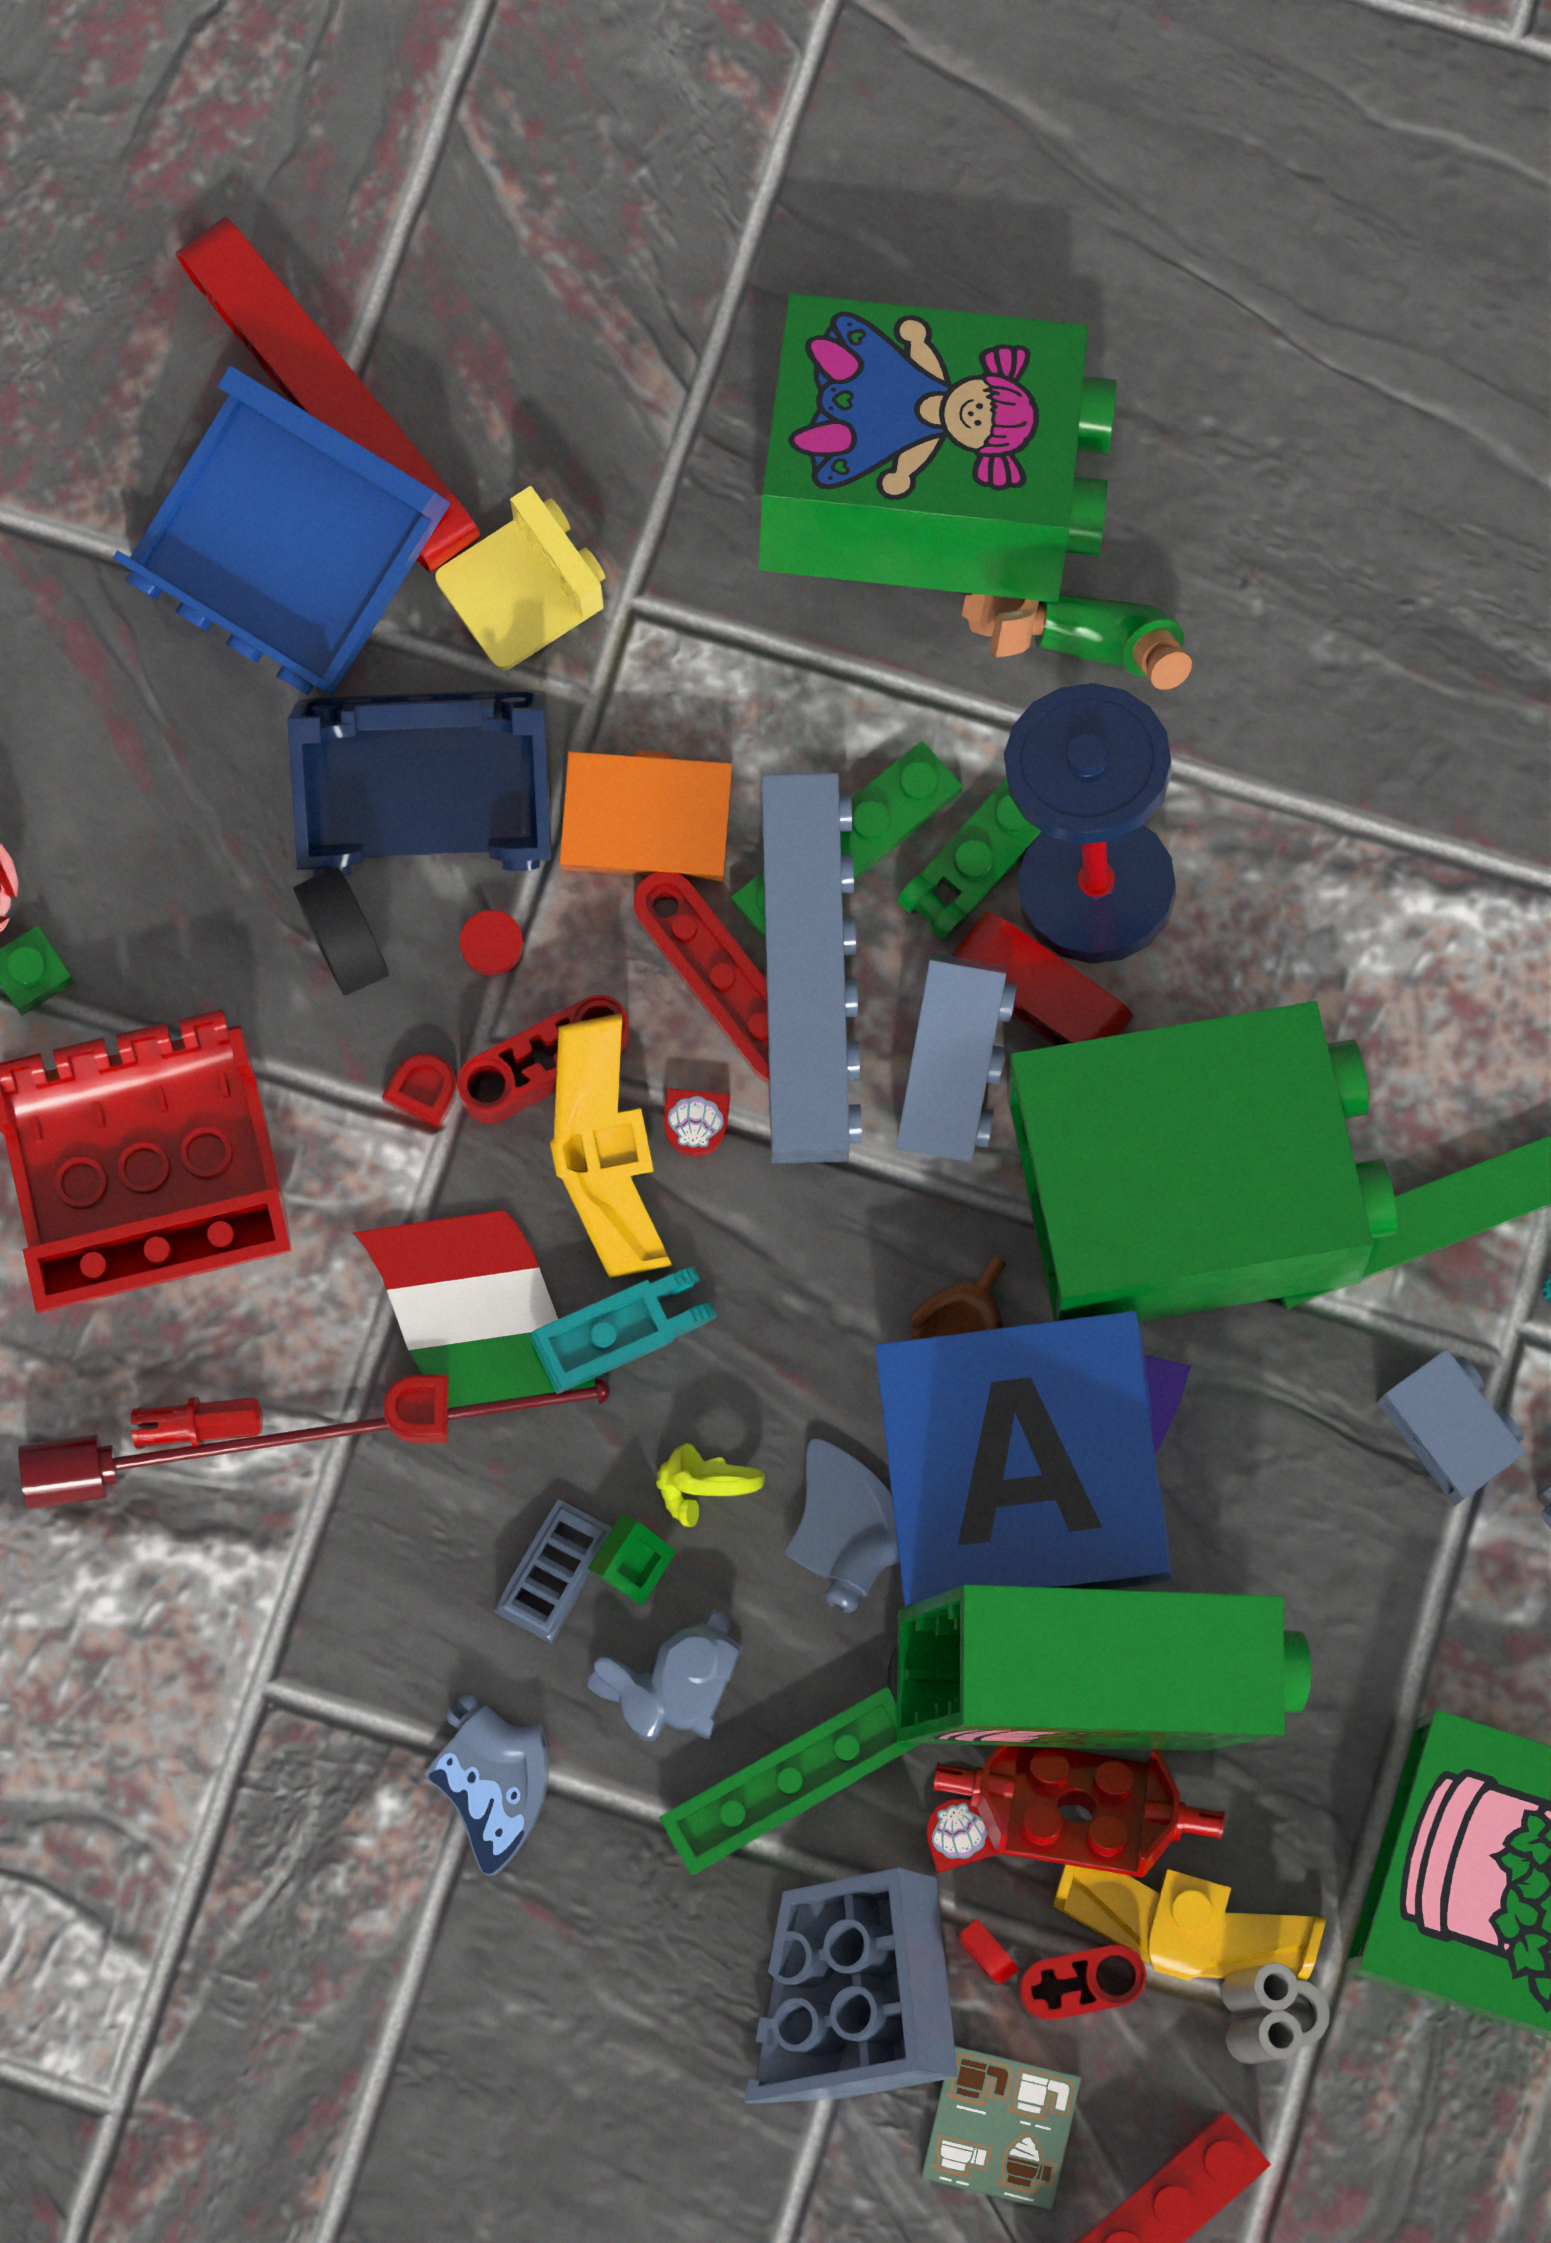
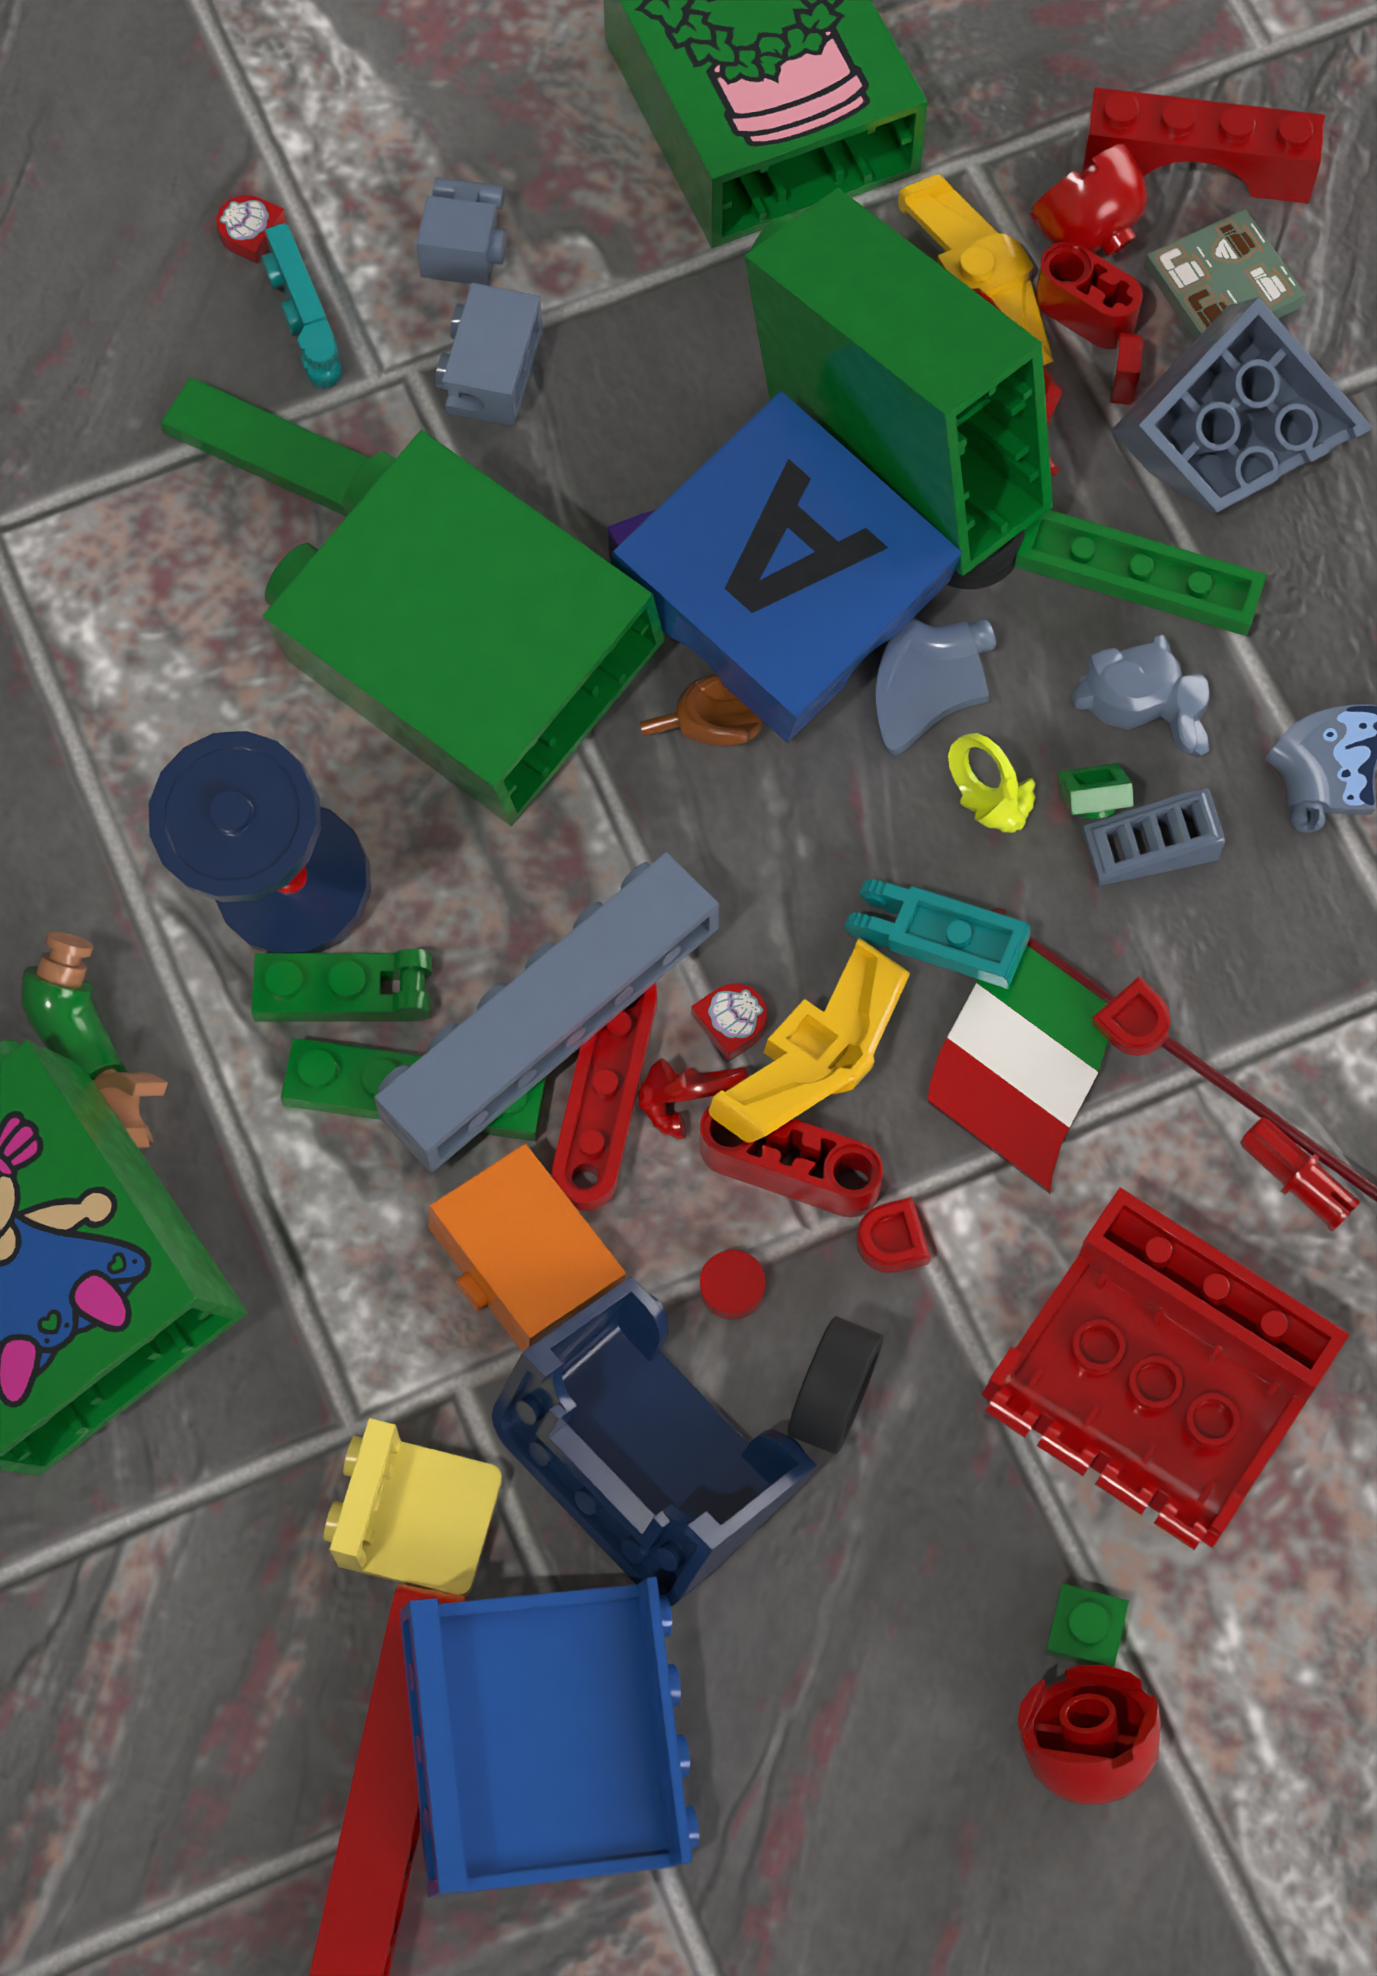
camera: 130 degrees left, 10 degrees down
(679, 1022) = (666, 1086): none -> red piece
(955, 1058) = (522, 856): sand blue brick -> none
(957, 1836) = (1072, 444): tile -> none
(1049, 992) = (410, 856): red beam -> none
(1156, 2058) = (1095, 205): none -> red cylinder
(1257, 2018) = (1001, 164): light grey piece -> none

